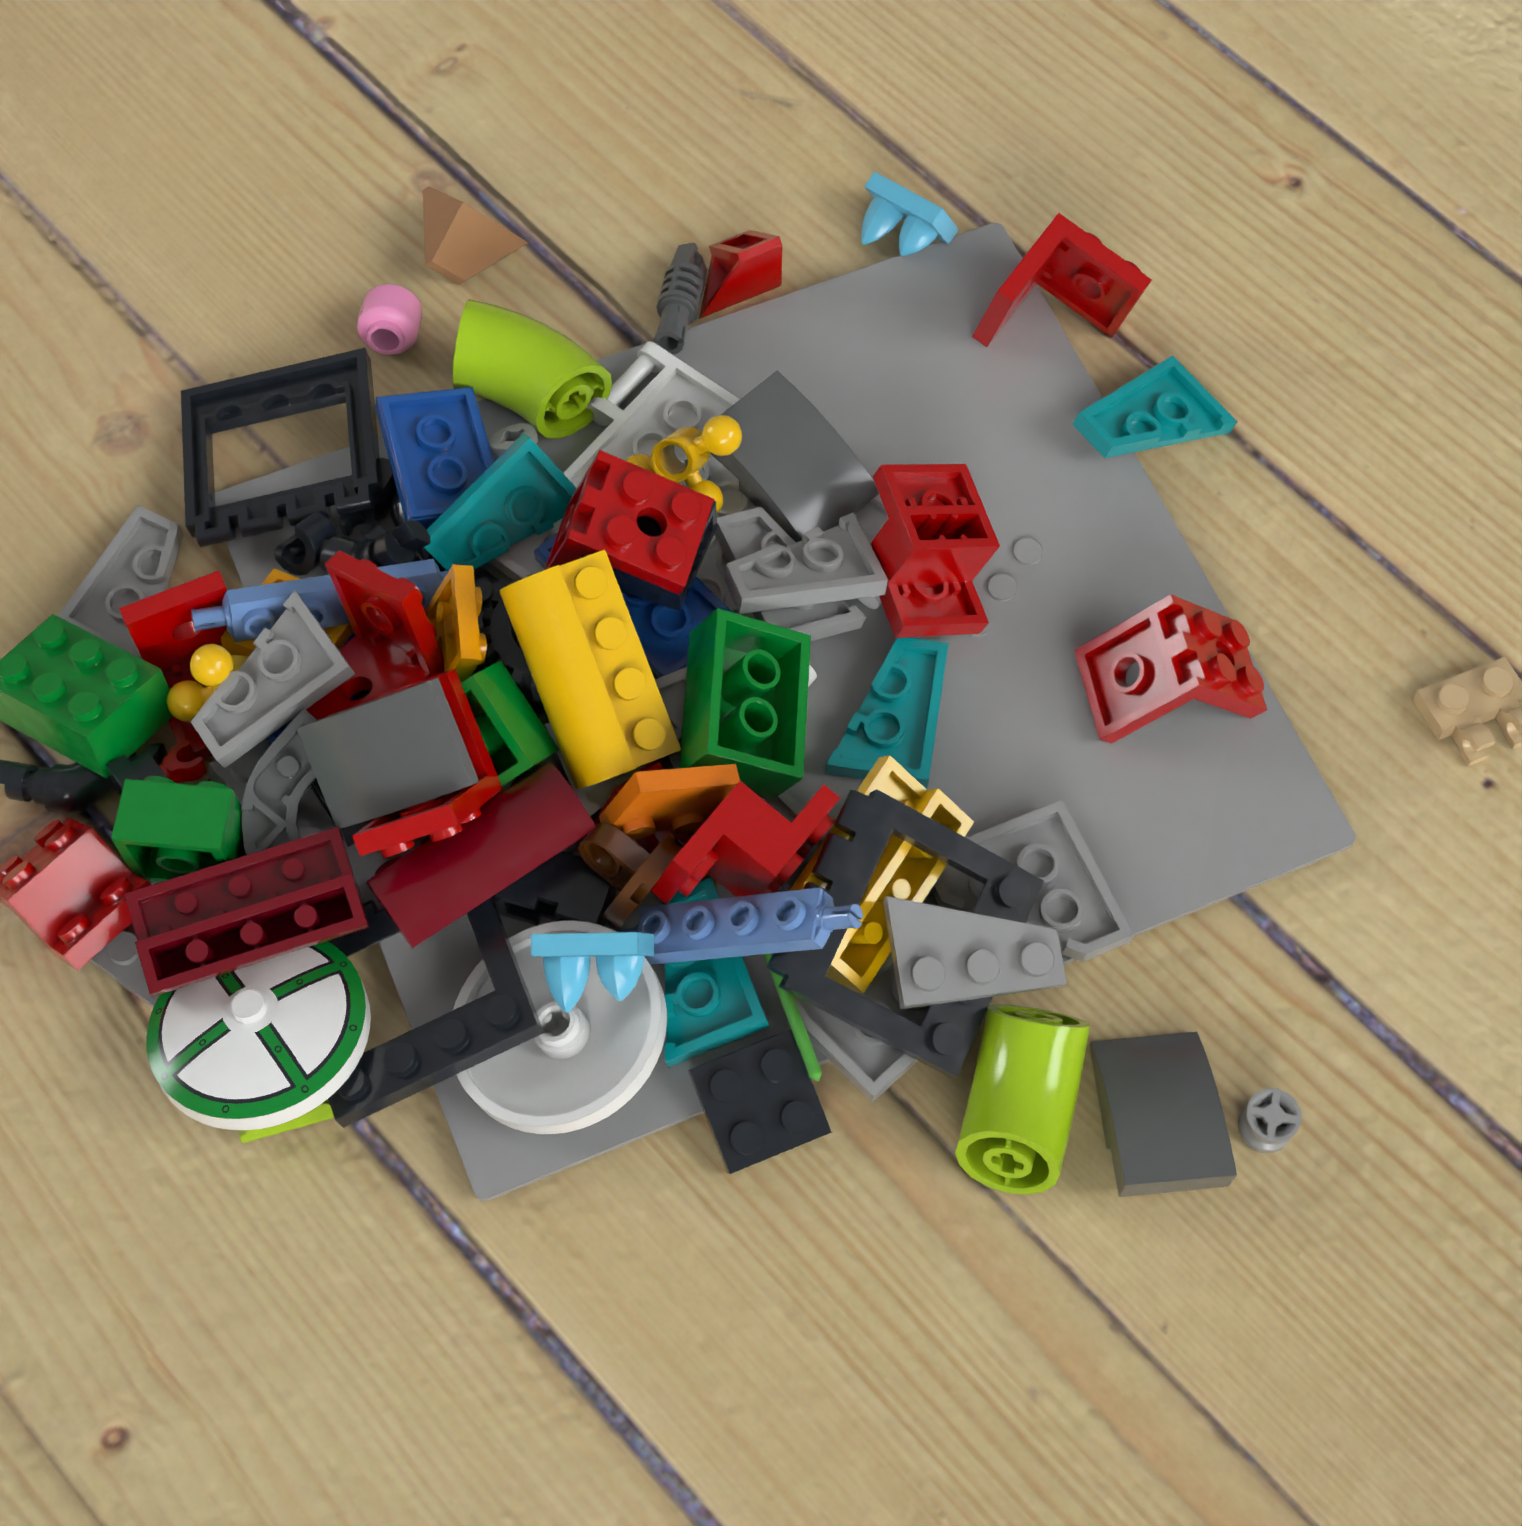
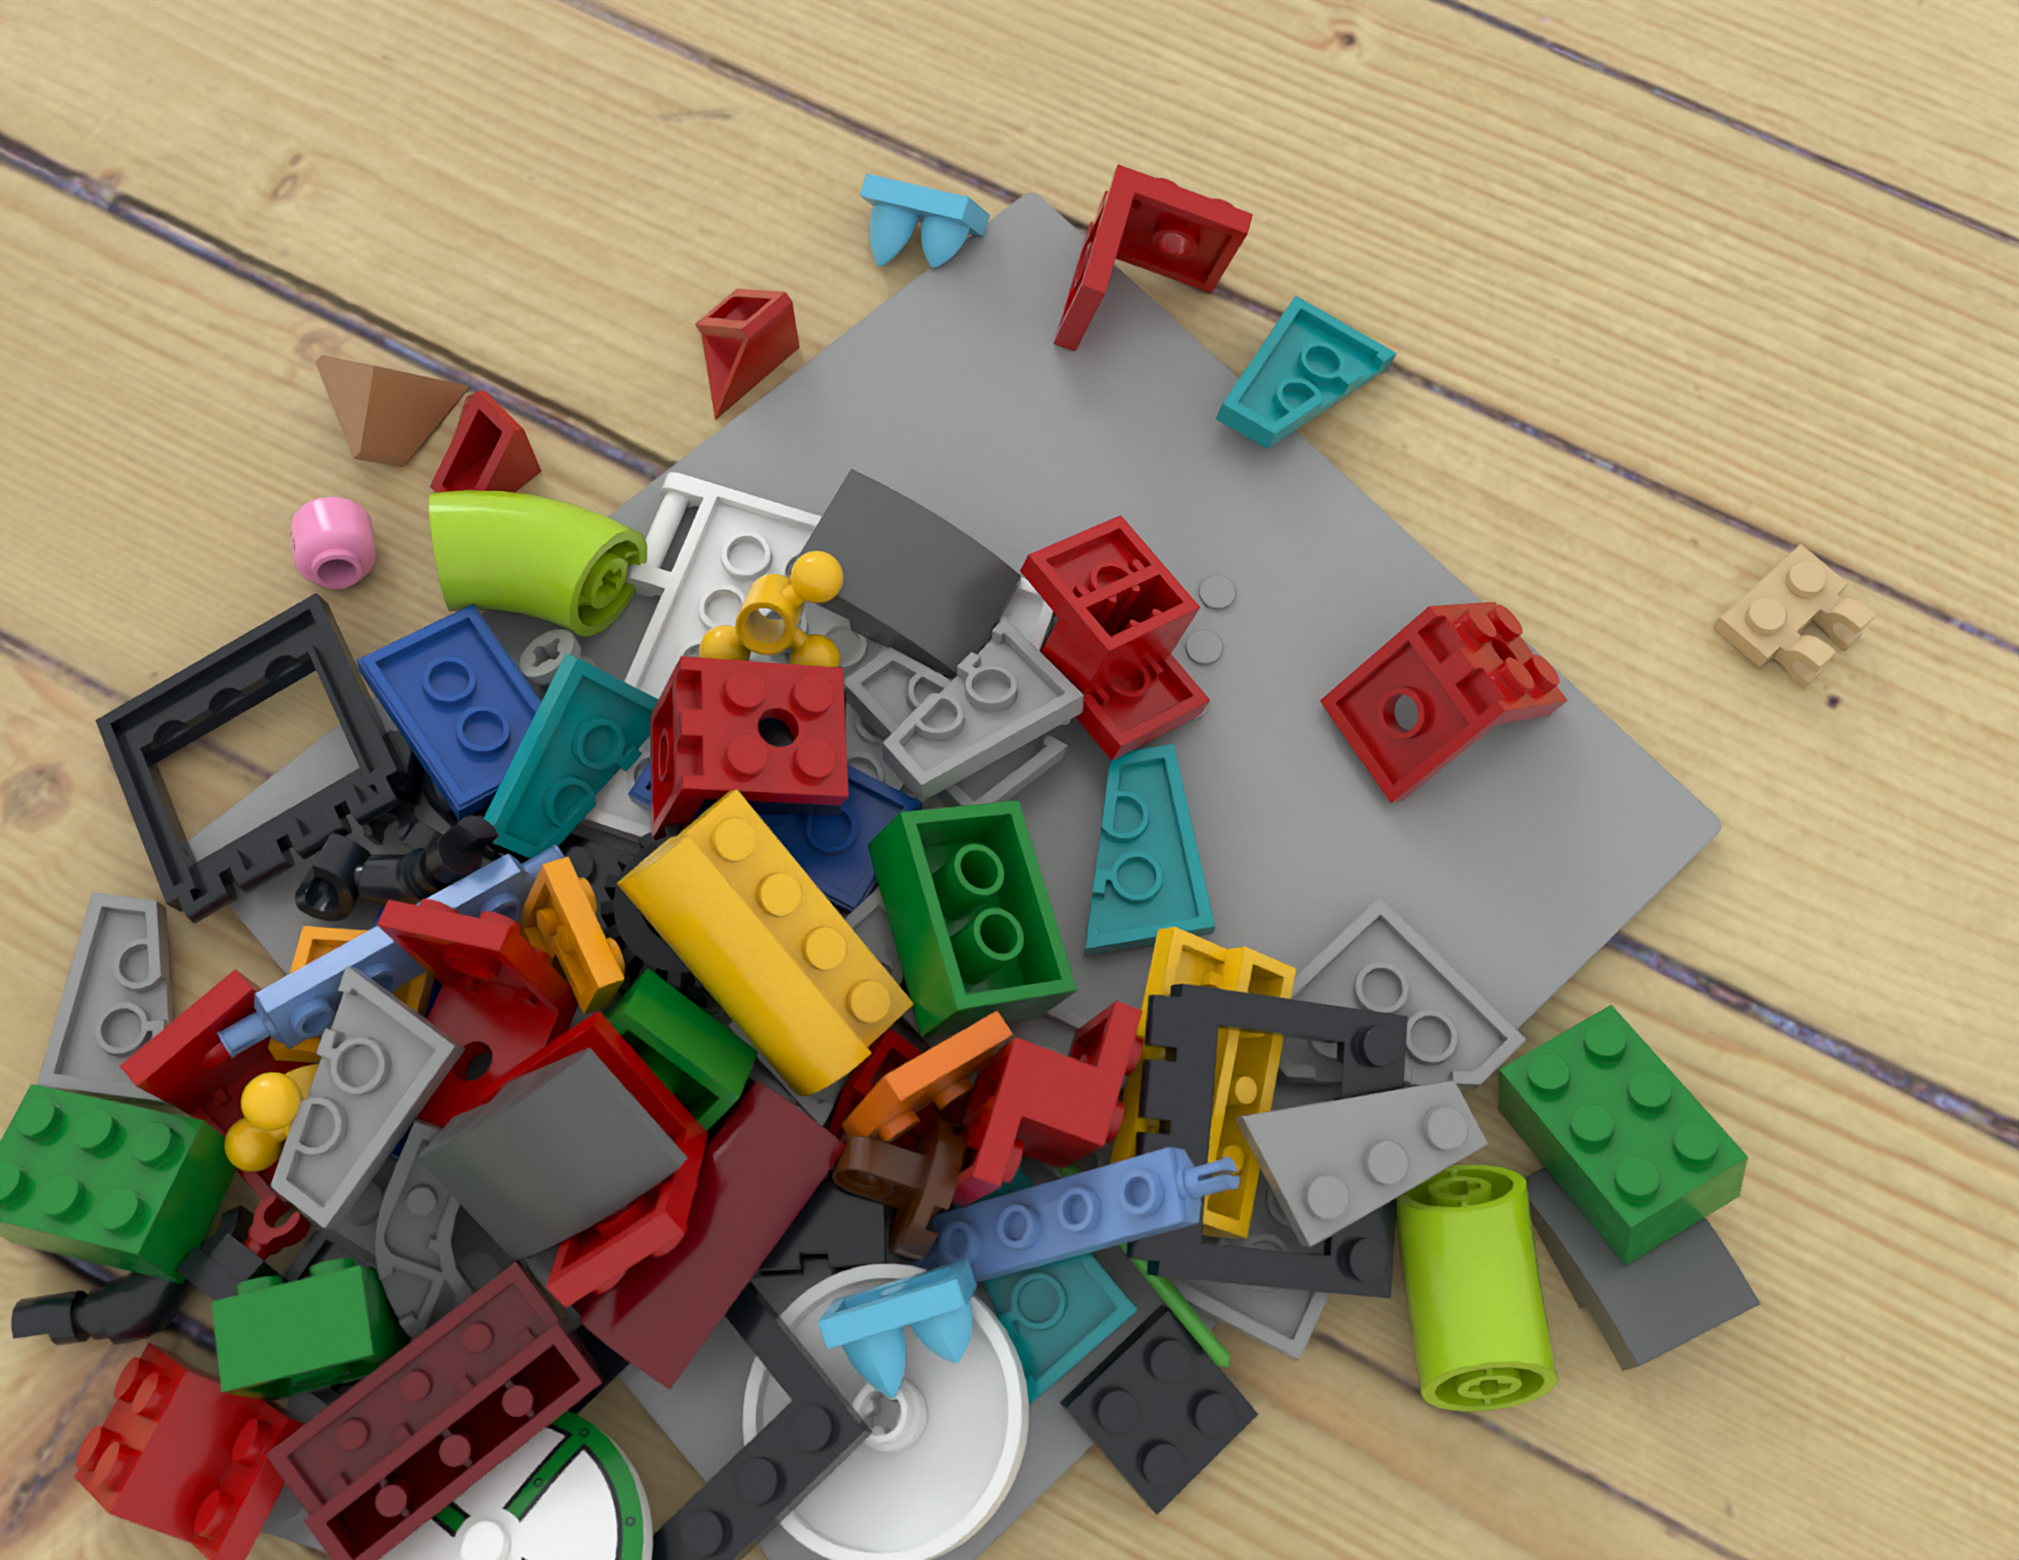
camera: 20 degrees left, 5 degrees up
(524, 286) = (486, 451): none -> red slope
(680, 297) = (686, 402): dark grey hinge -> none
(1178, 1022) = (1620, 1134): none -> green brick
(1275, 1110) = (1771, 1202): light grey wheel -> none

